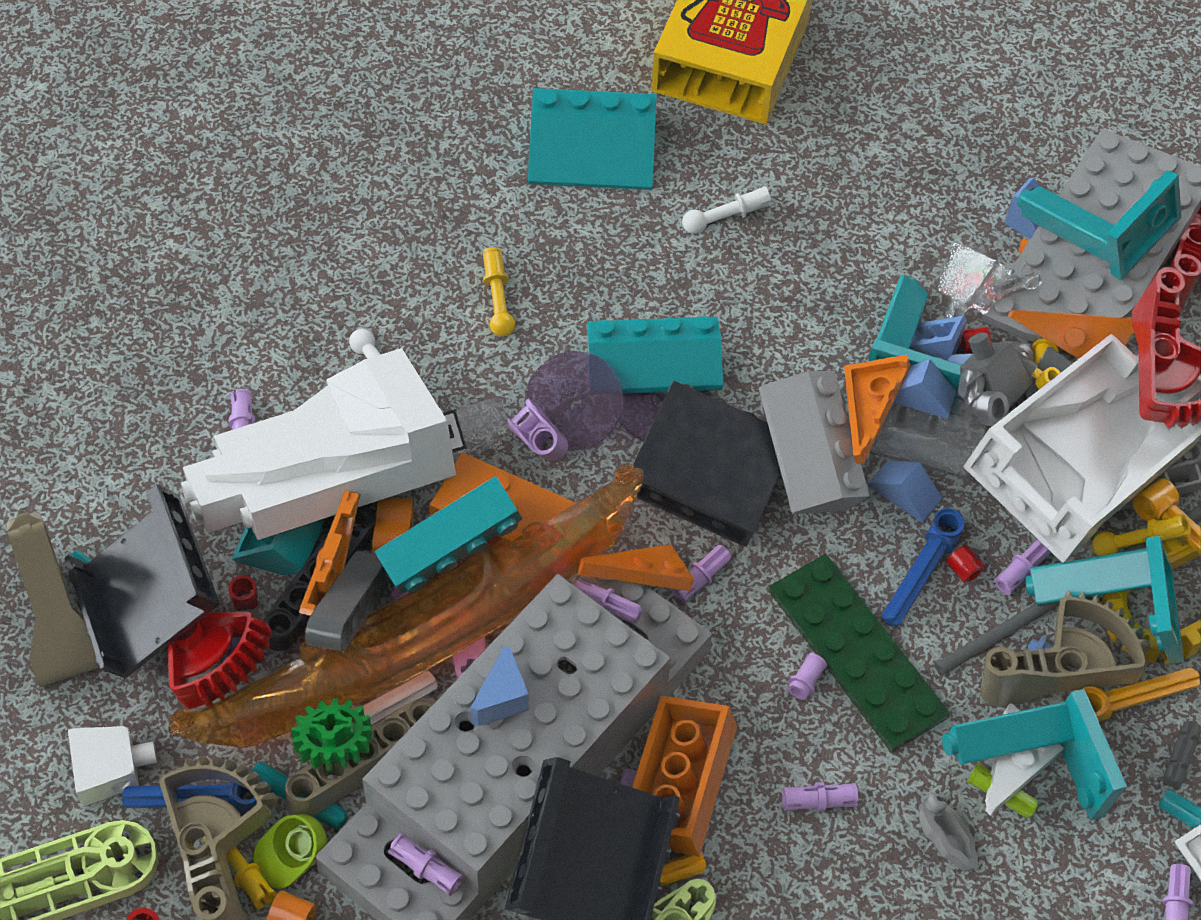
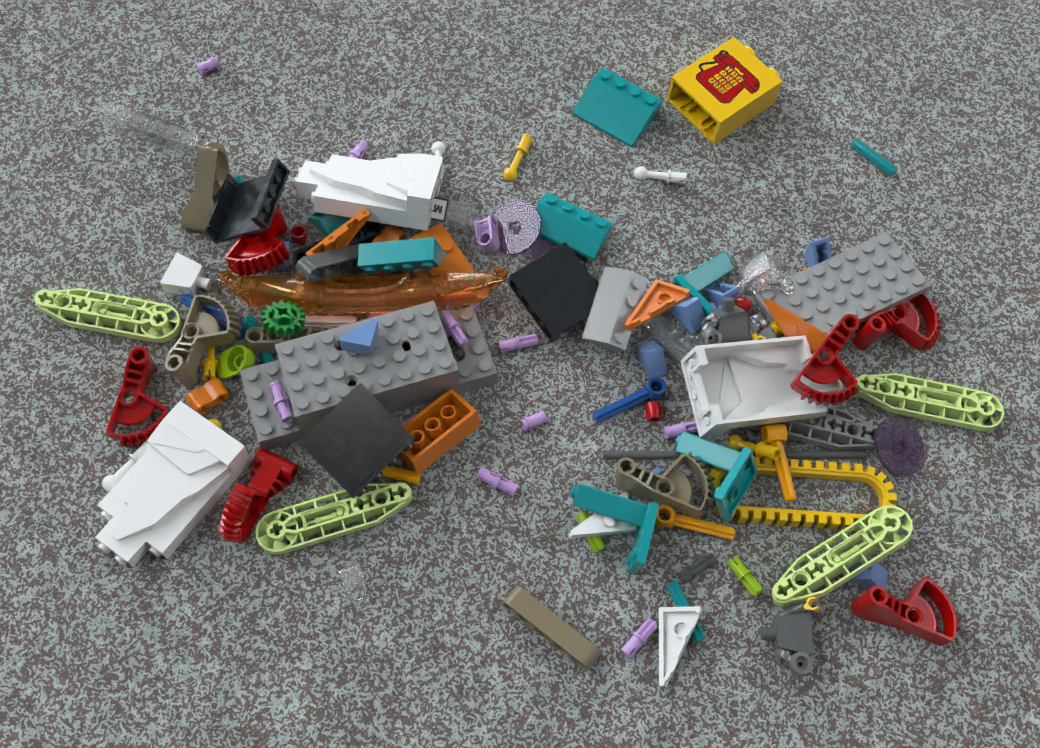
camera: 30 degrees right, 5 degrees up
(646, 566) = (491, 325): orange wing -> none
(859, 653) = (568, 424): dark green plate -> none
(948, 832) = (547, 535): light grey arm -> none
(1001, 30) = (874, 157): none -> teal axle
(1117, 244) = (854, 291): teal piece -> none

